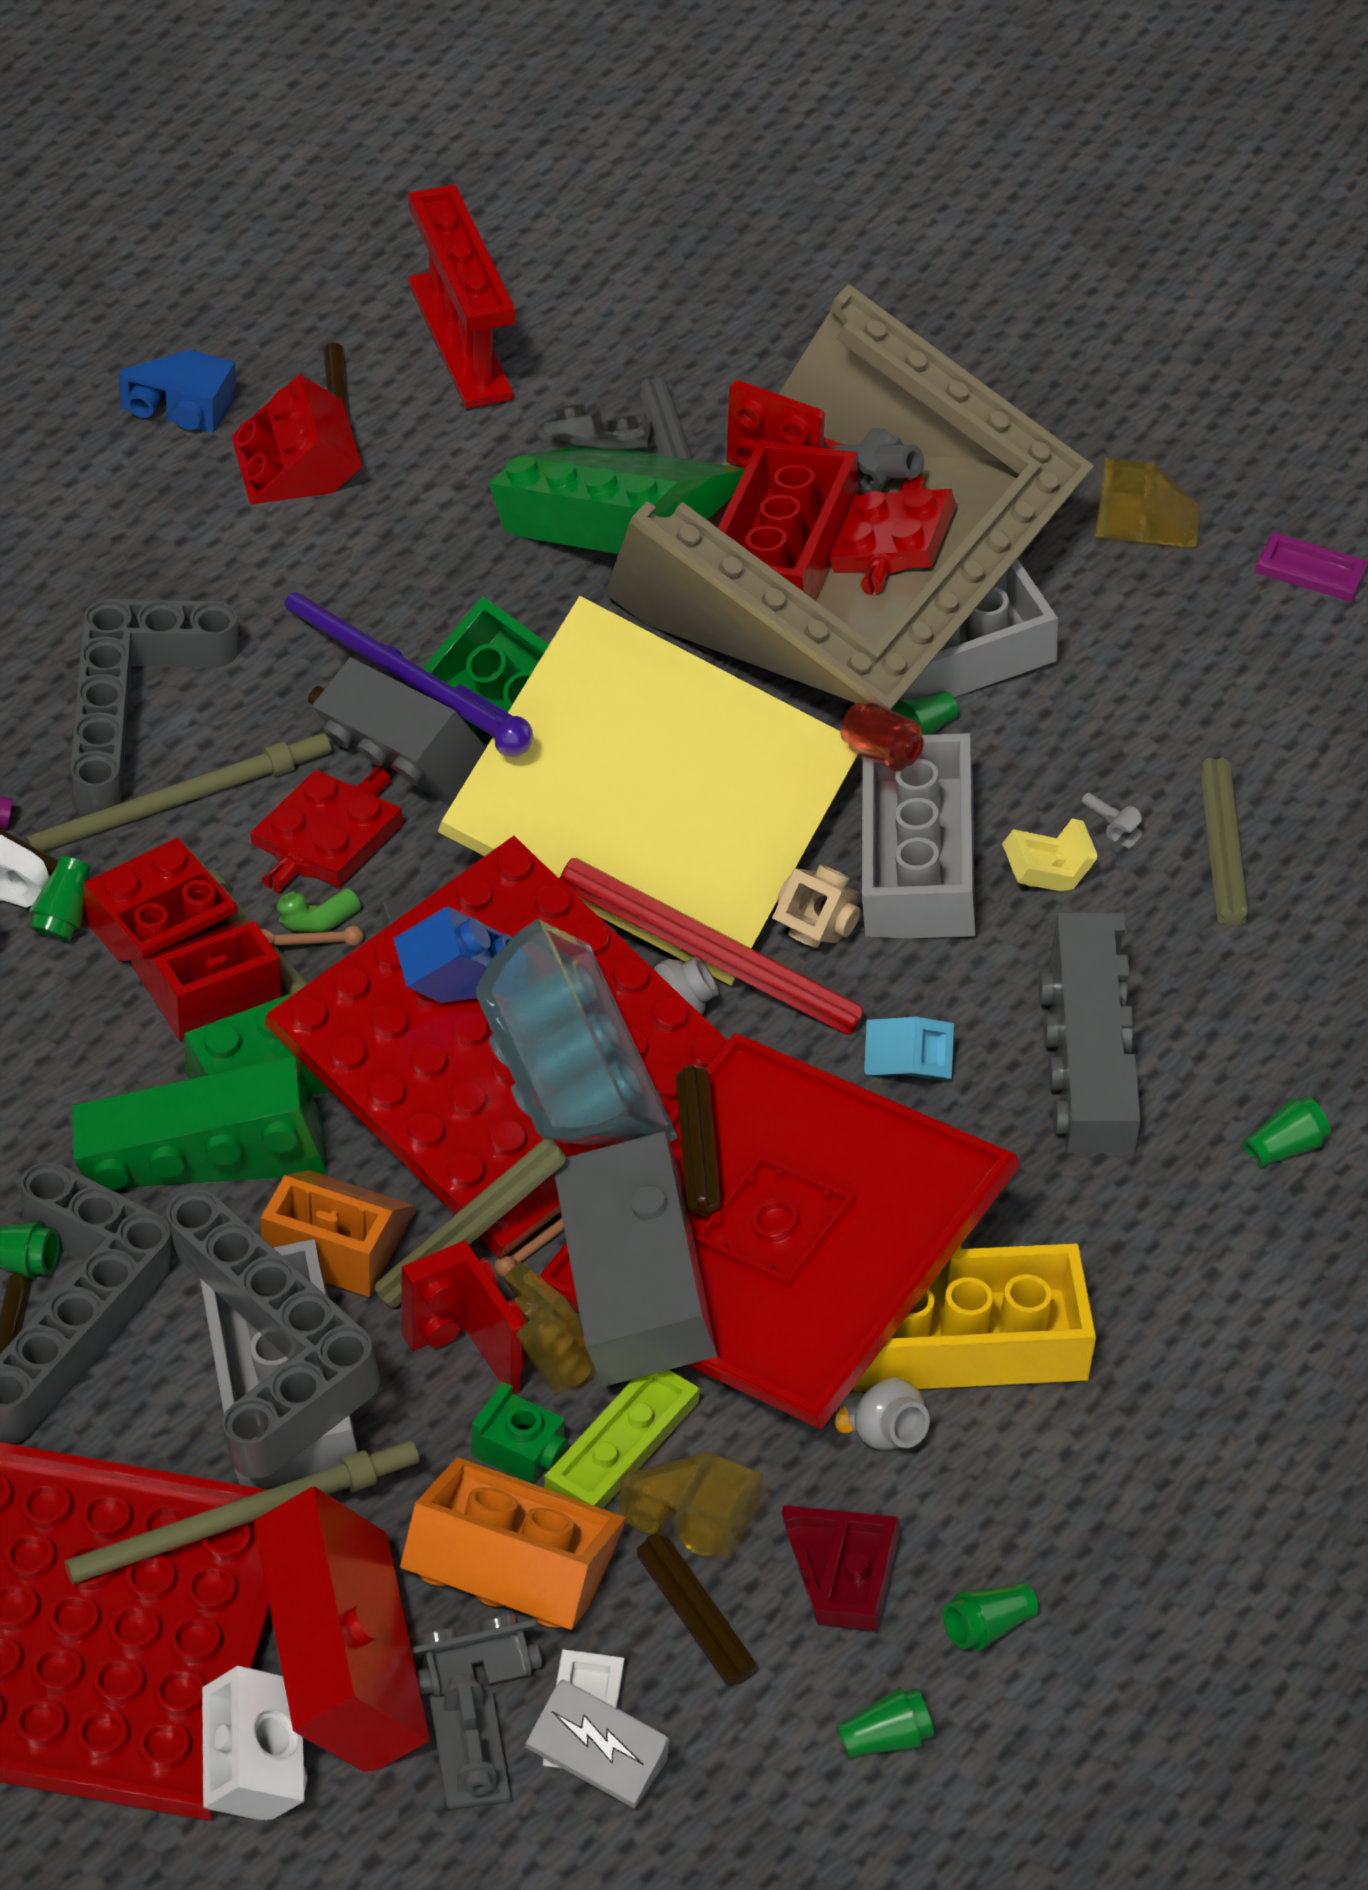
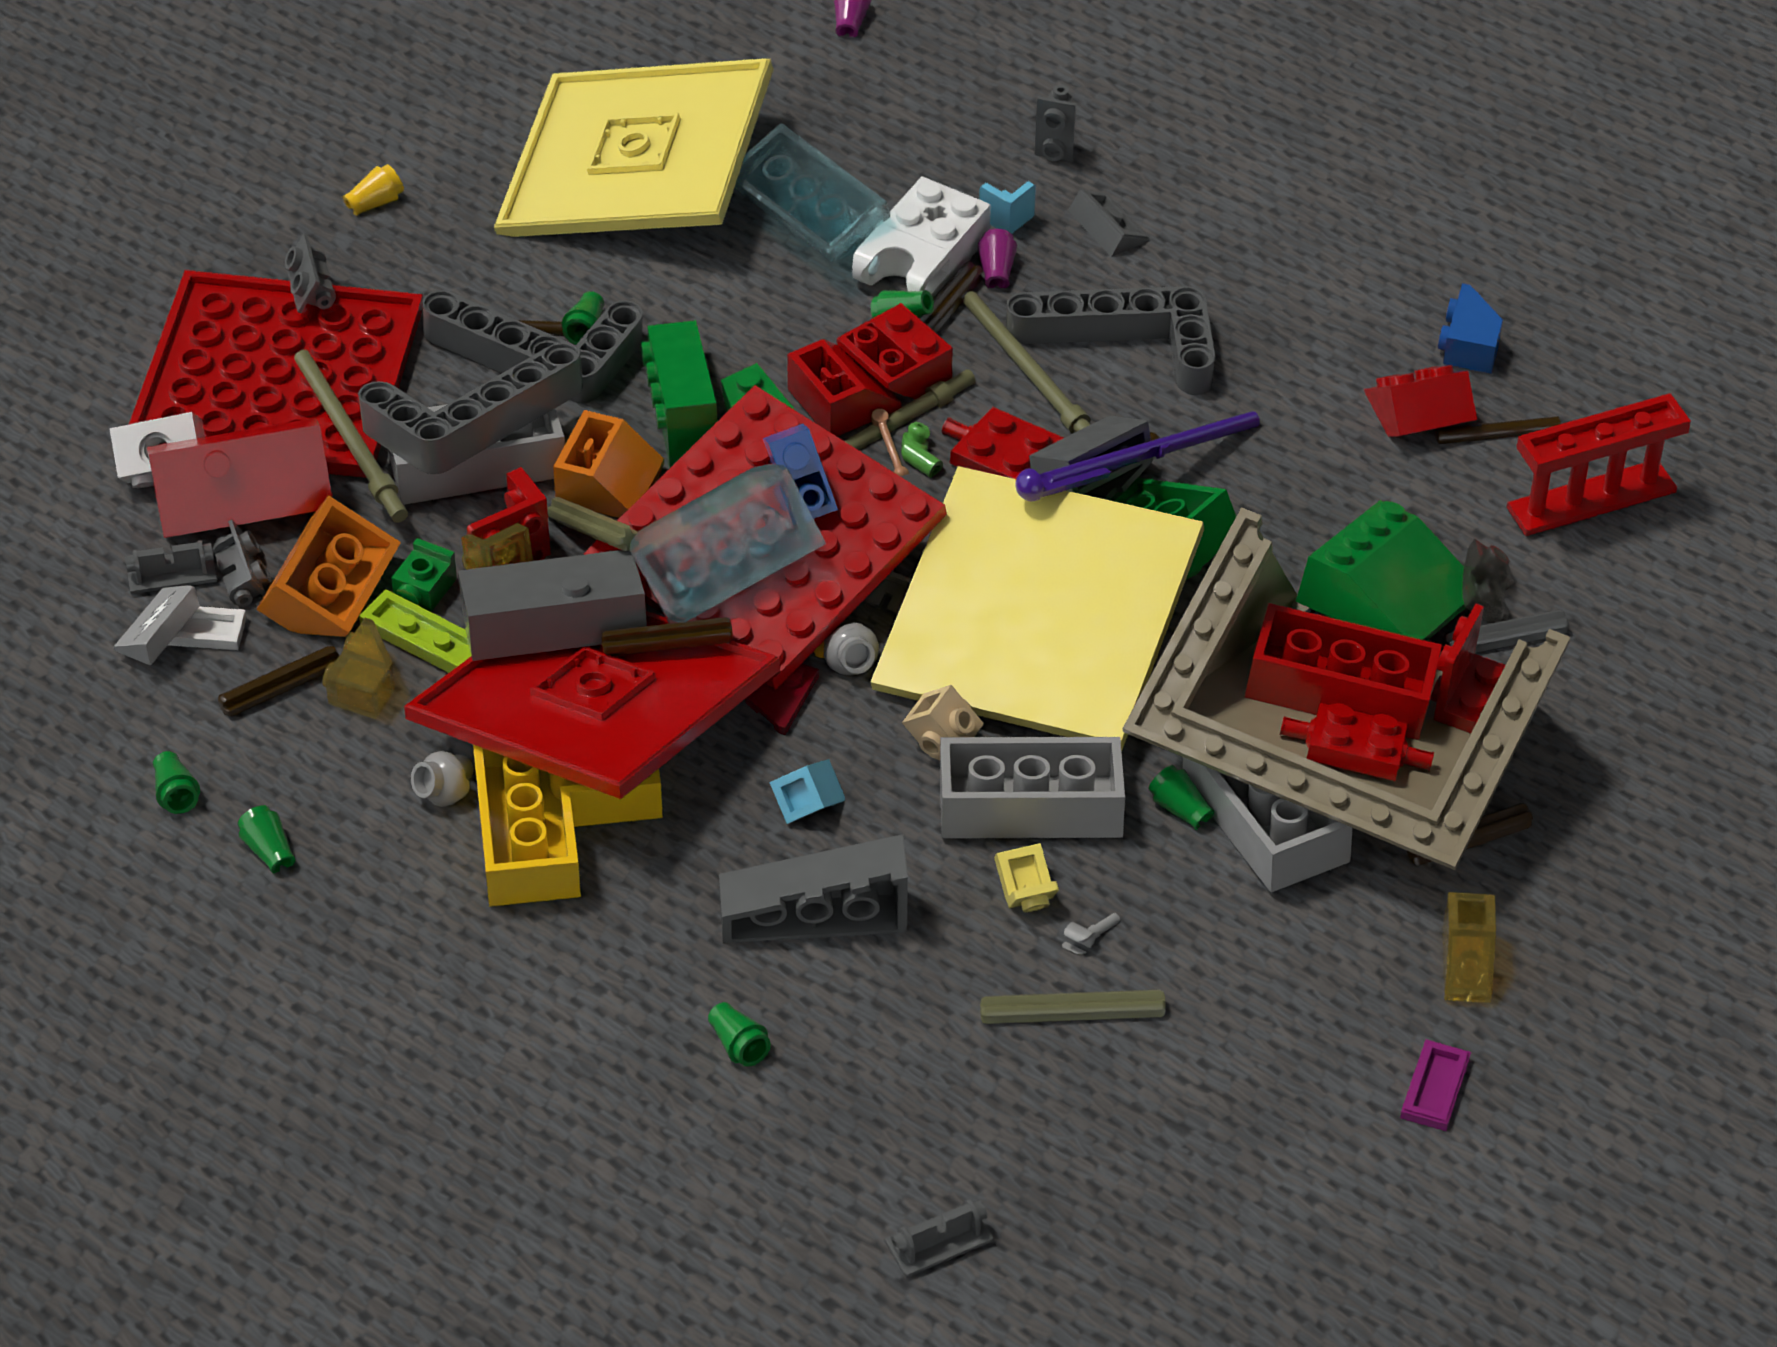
camera: 90 degrees right, 0 degrees up
(711, 946) = (883, 655): red axle -> none
(843, 1562) = (312, 758): dark red wing -> none
(882, 735) = (1100, 732): clear red brick -> none
(884, 457) = (1445, 731): dark grey axle -> none

